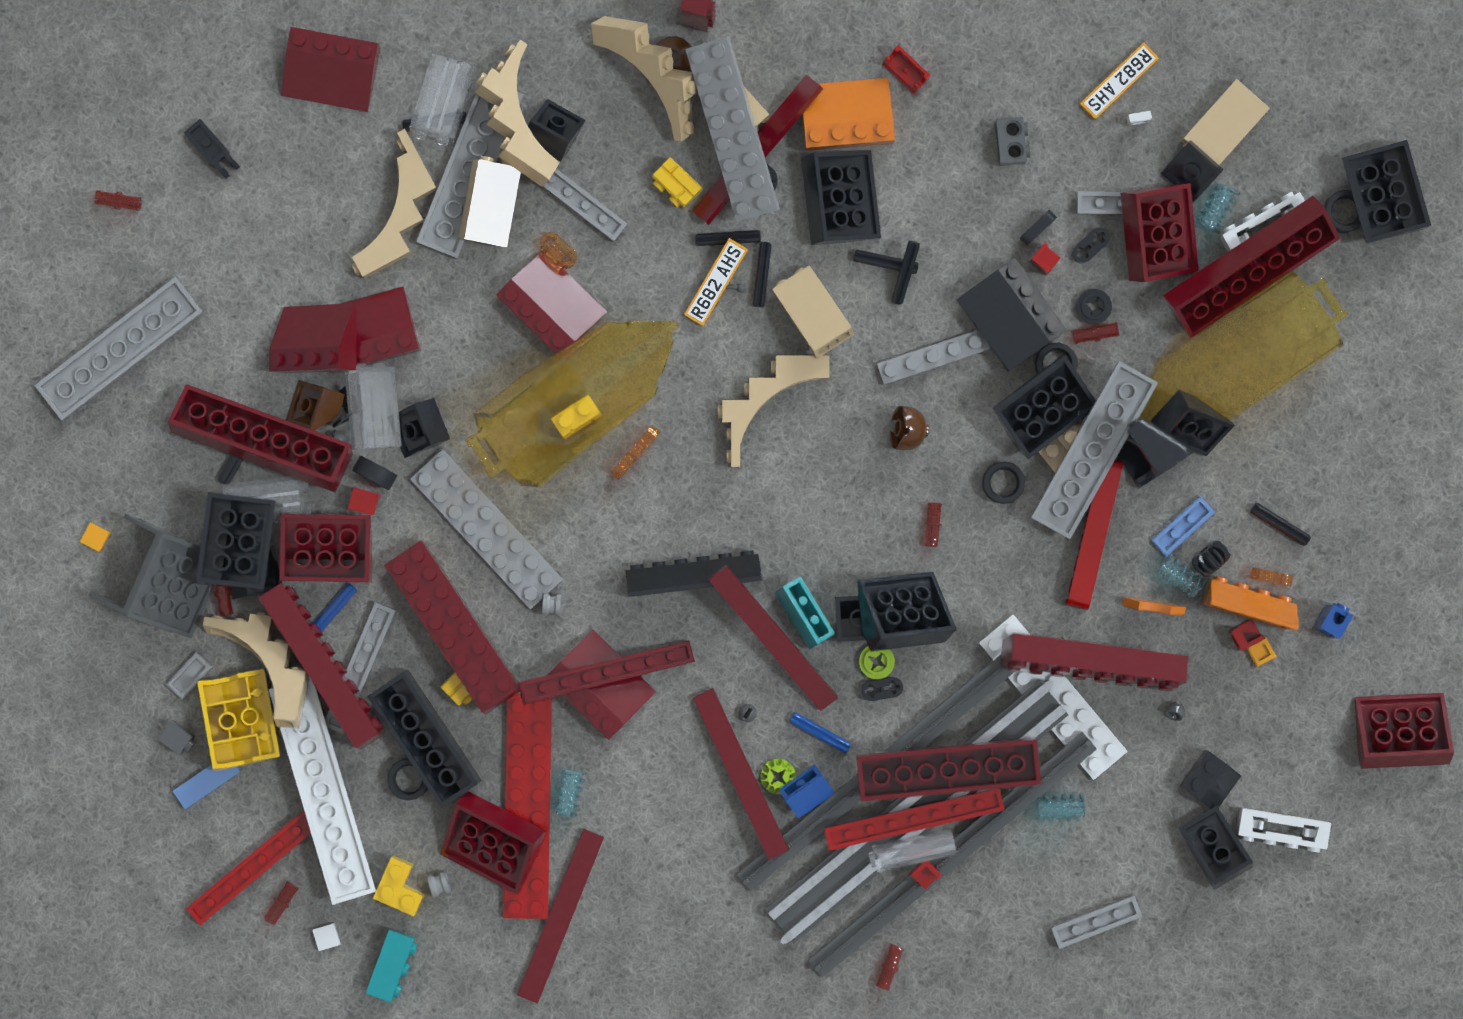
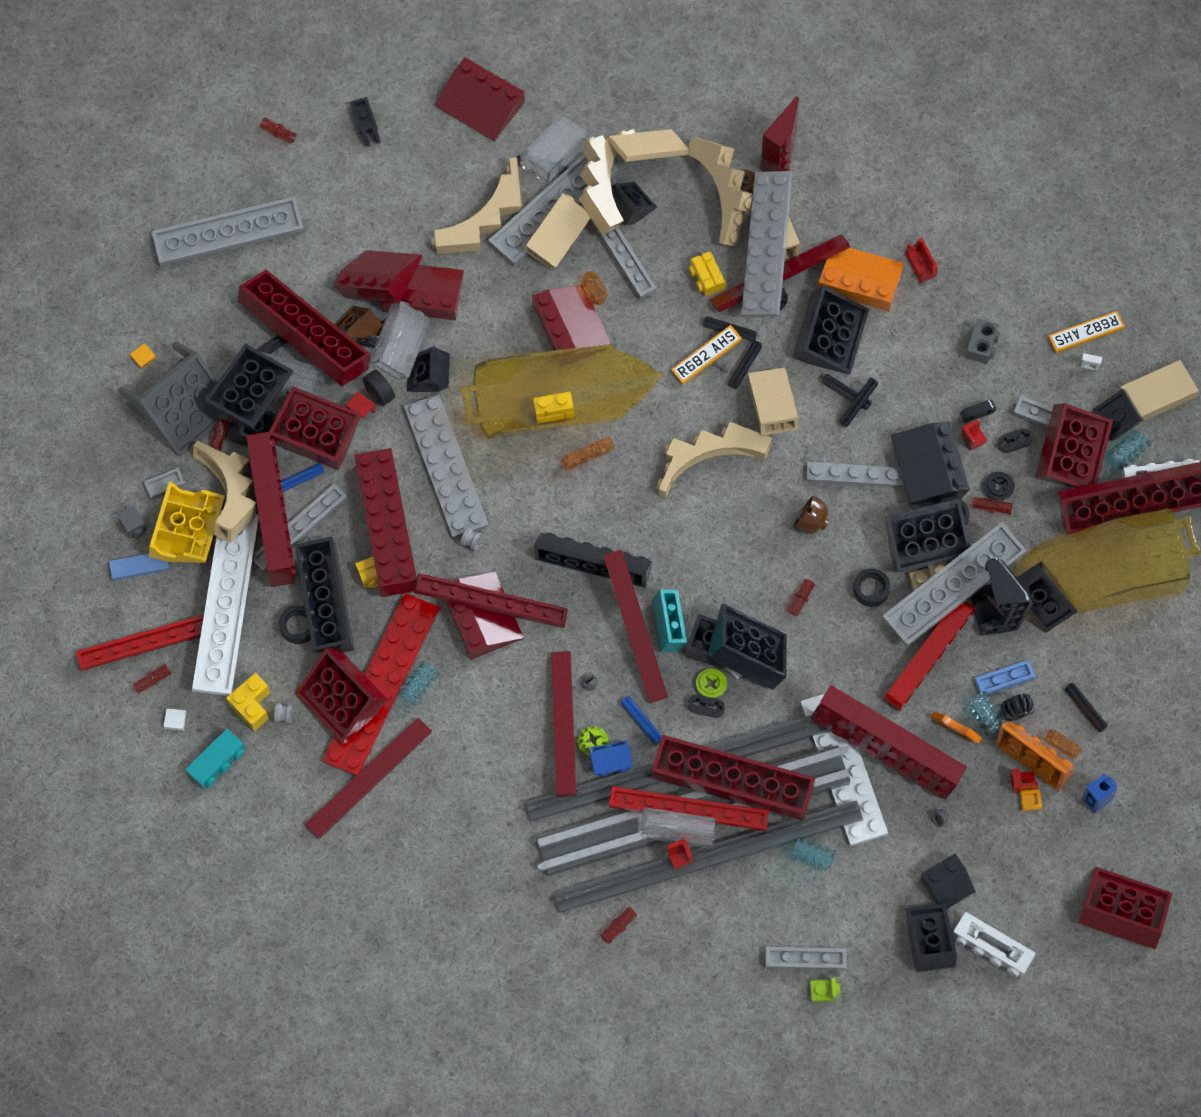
camera: 25 degrees right, 20 degrees down
(547, 55) = (648, 145): none -> tan tile
(1128, 947) = (824, 990): none -> lime bracket

